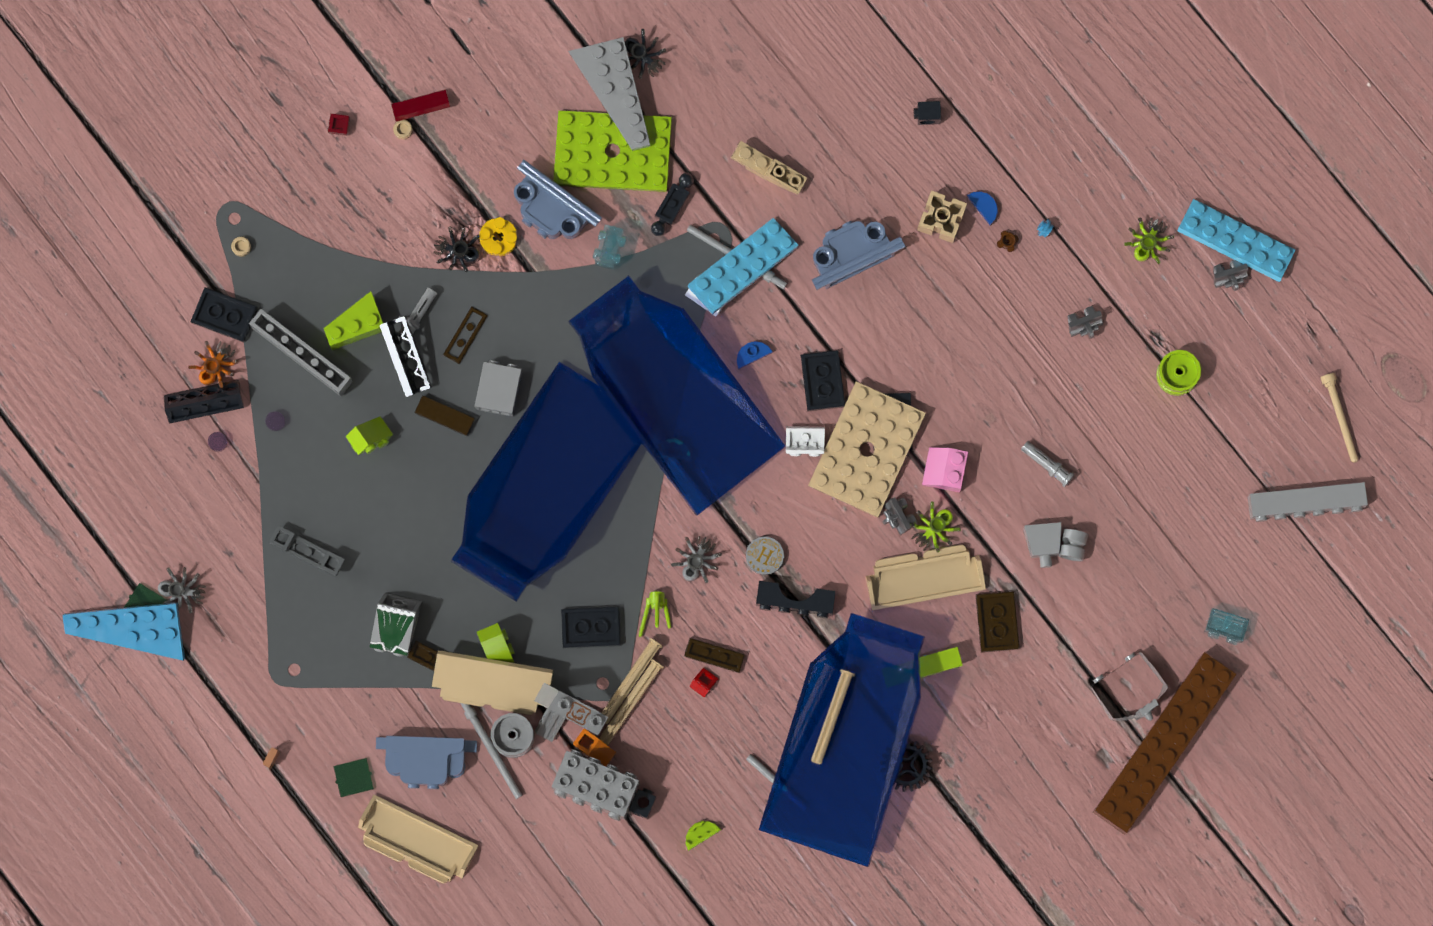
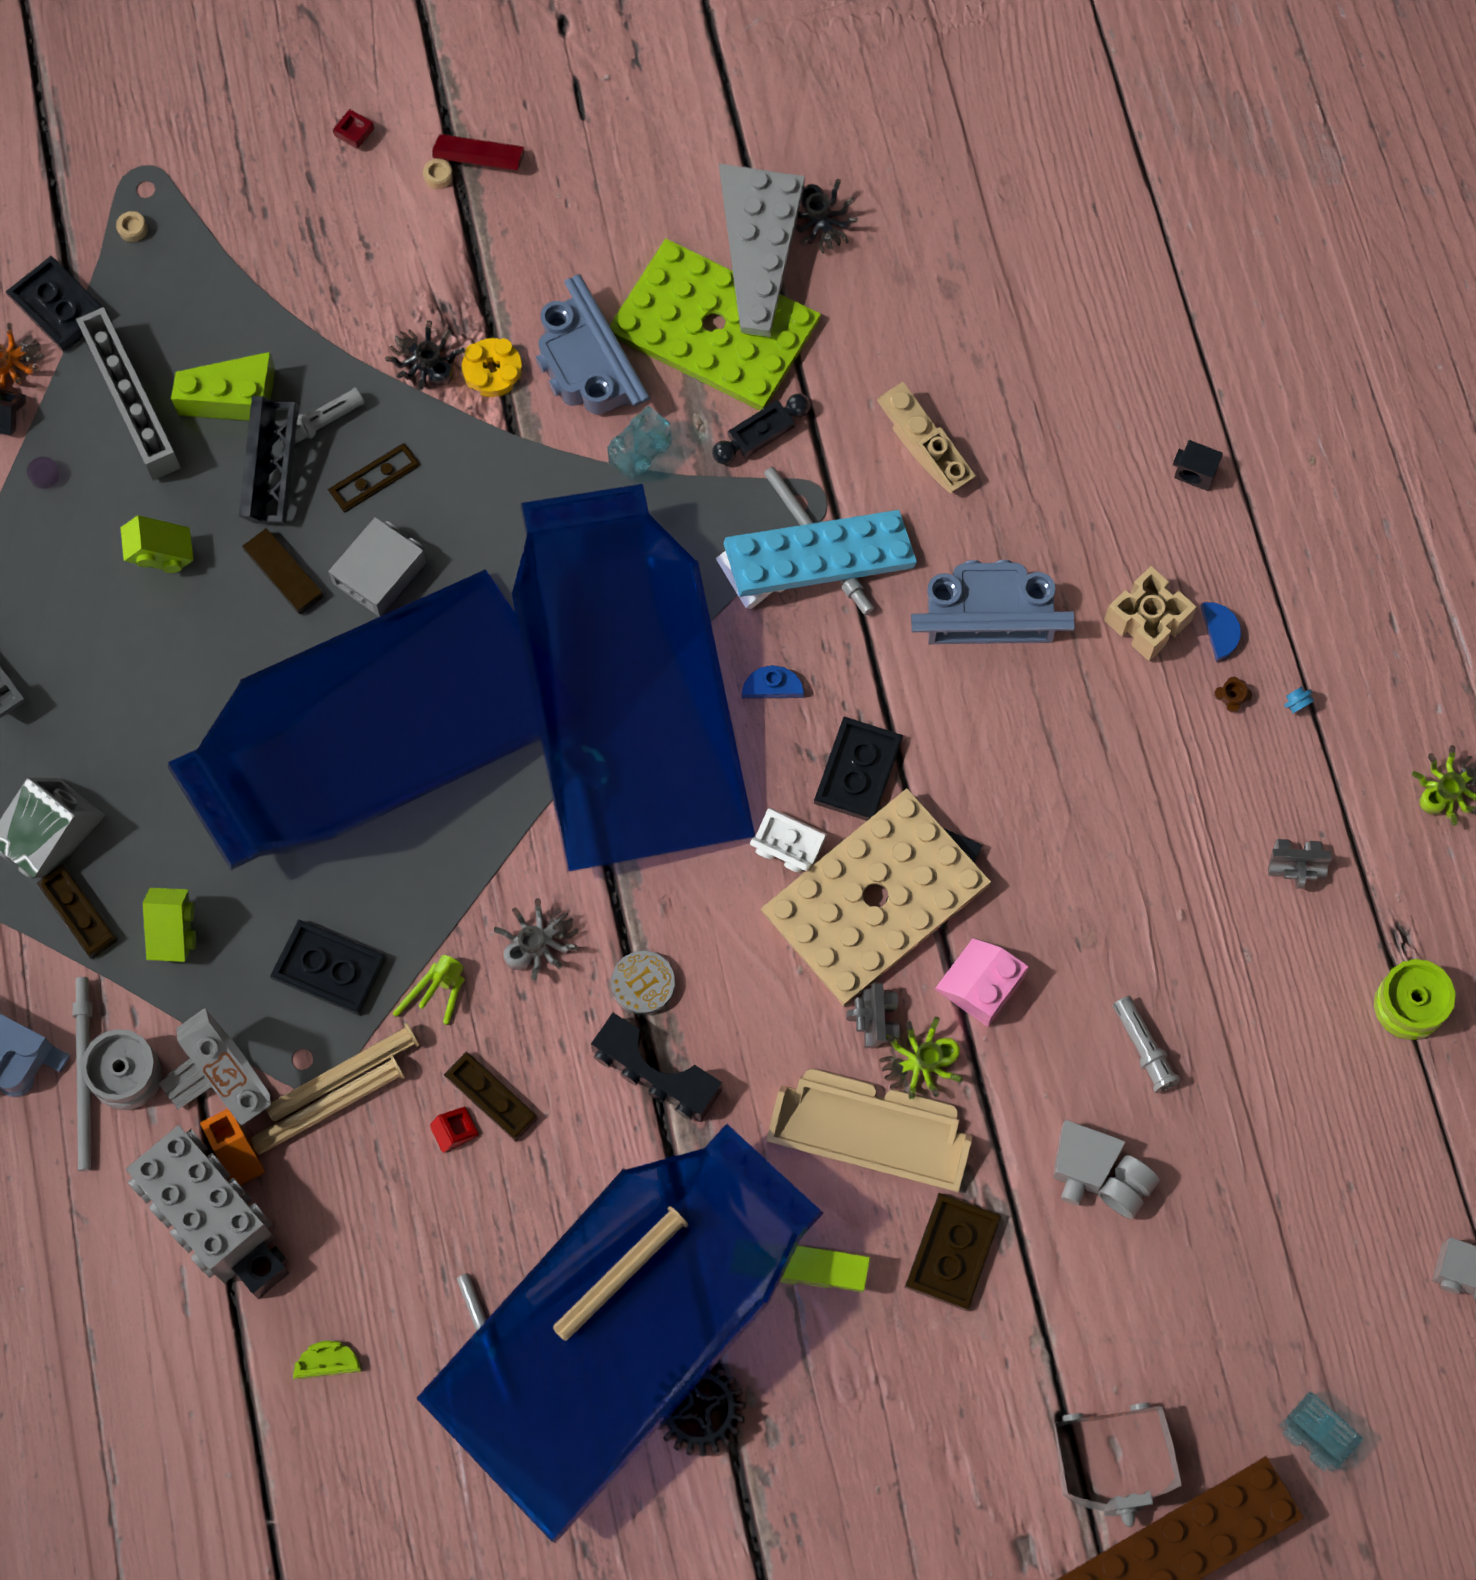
camera: 25 degrees right, 10 degrees down
(489, 682) = (128, 971): tan slope -> none

